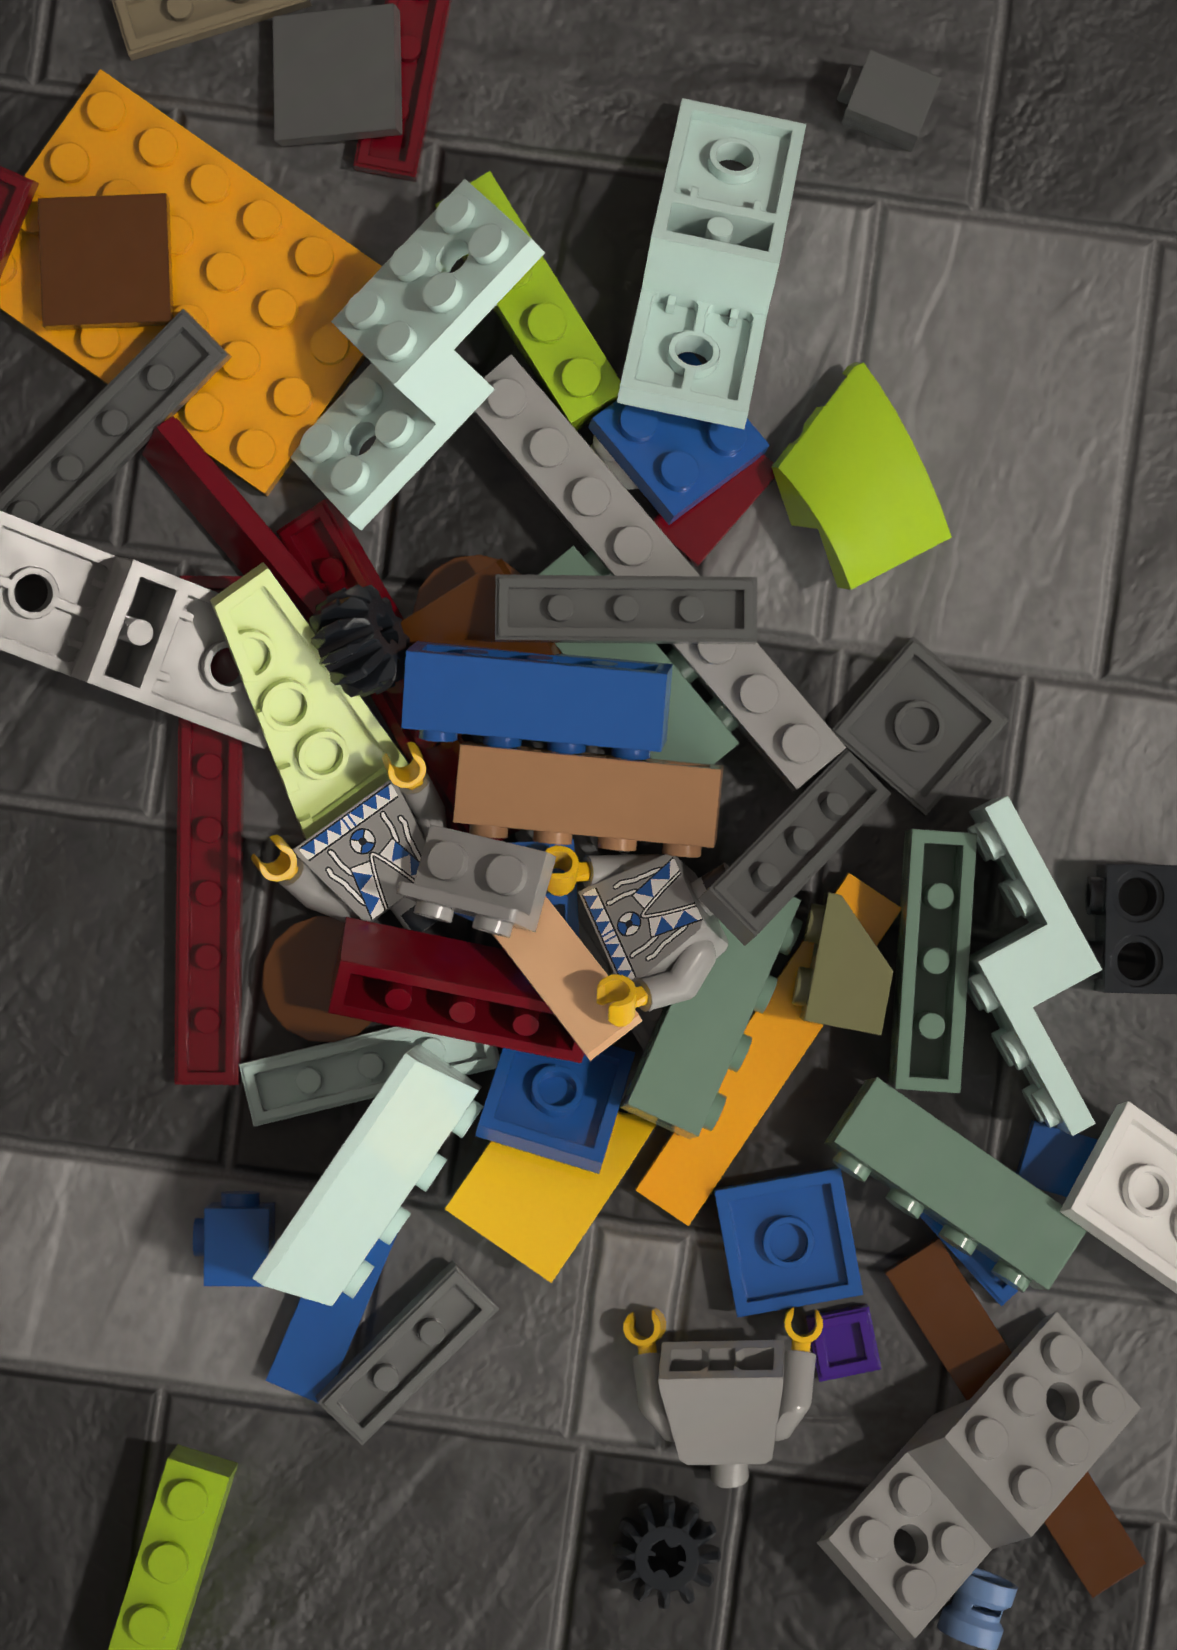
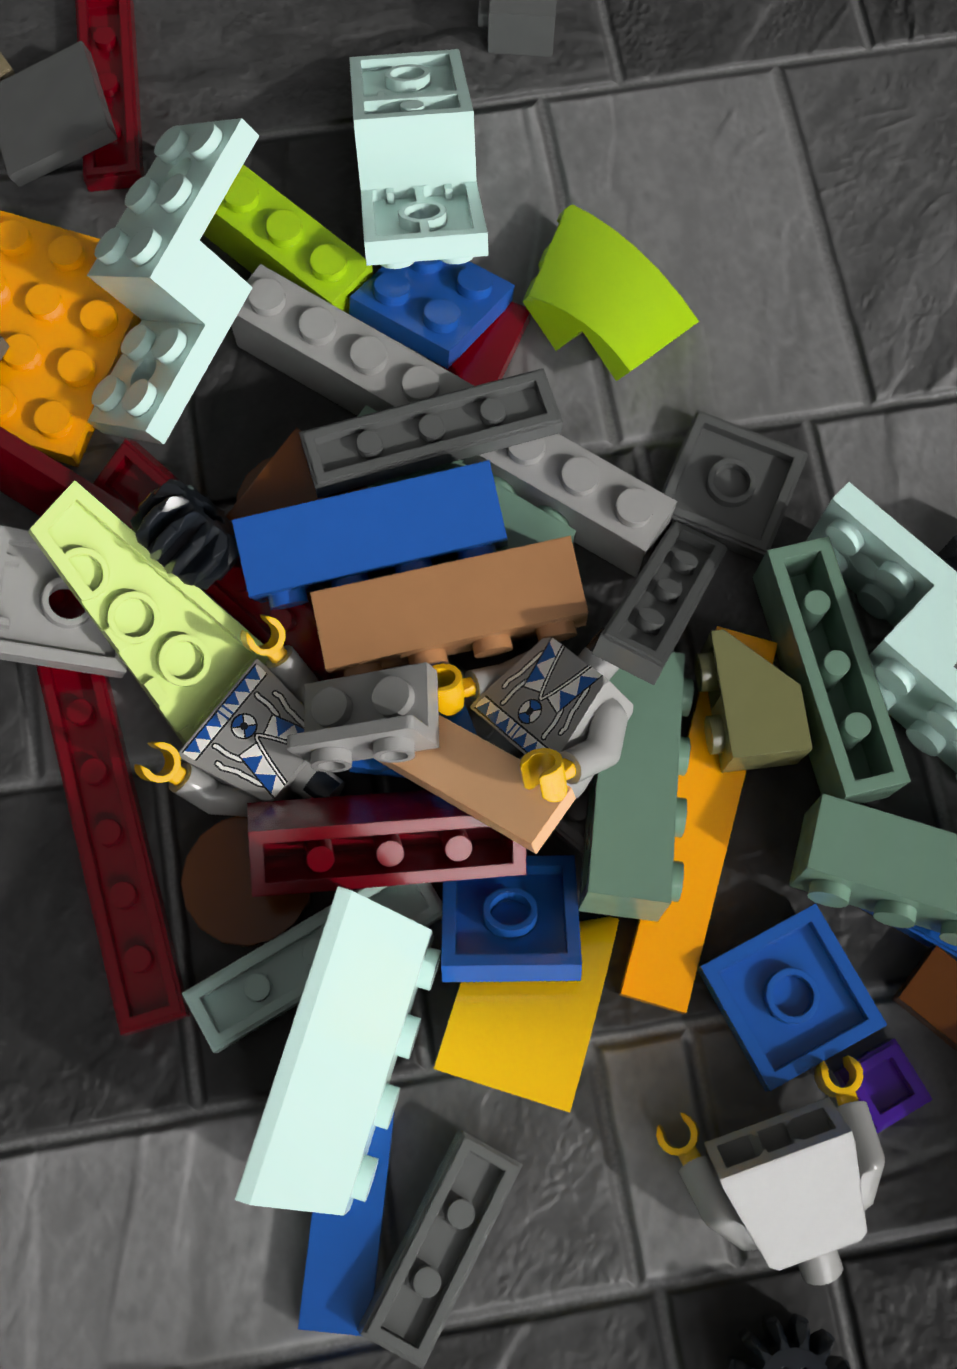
camera: 20 degrees left, 15 degrees down
(234, 1238) = (212, 1178): blue brick -> none

